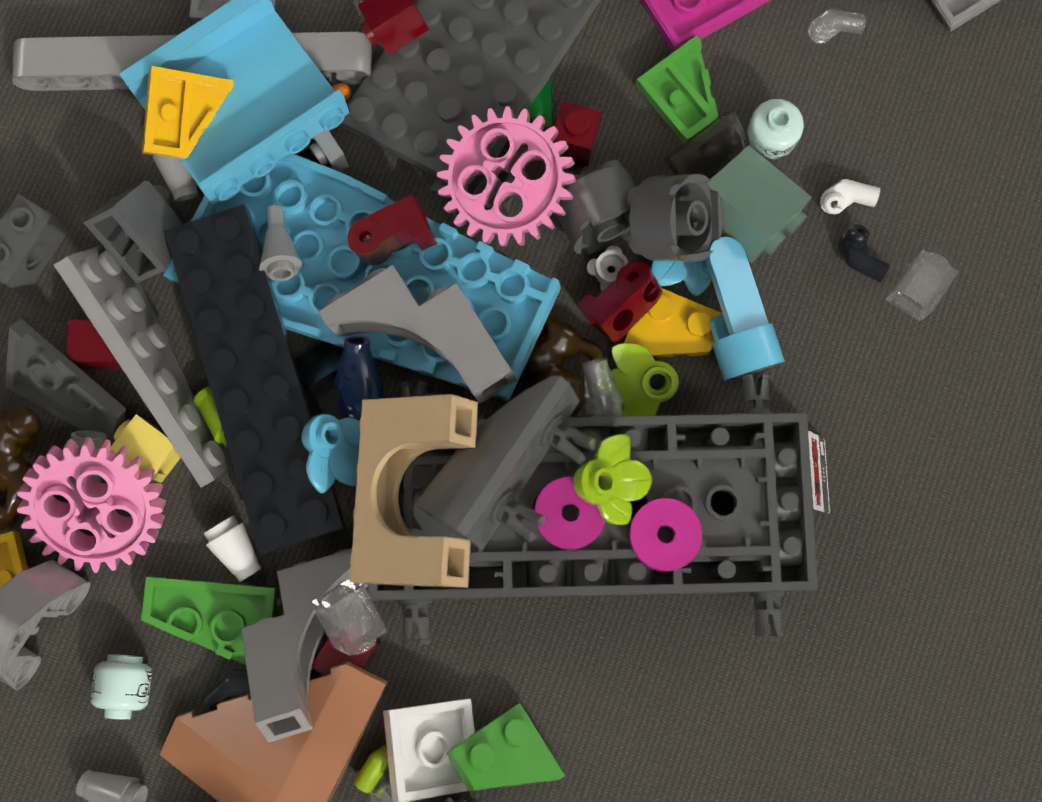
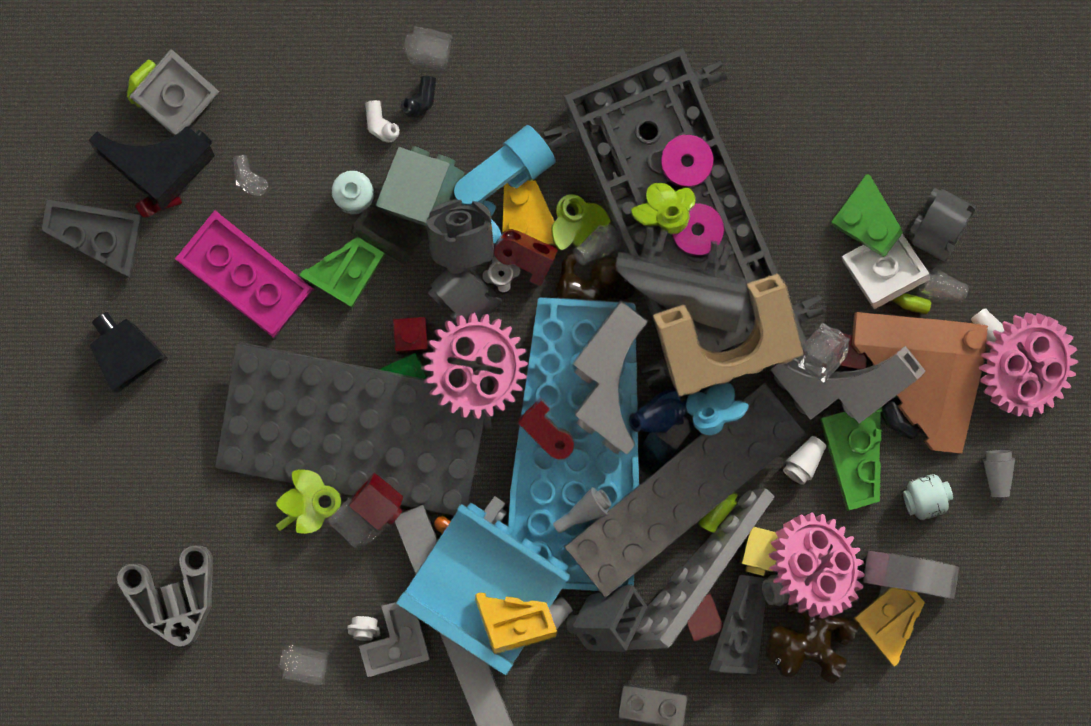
camera: 110 degrees left, 5 degrees up
(818, 473) = (596, 74): sticker -> none

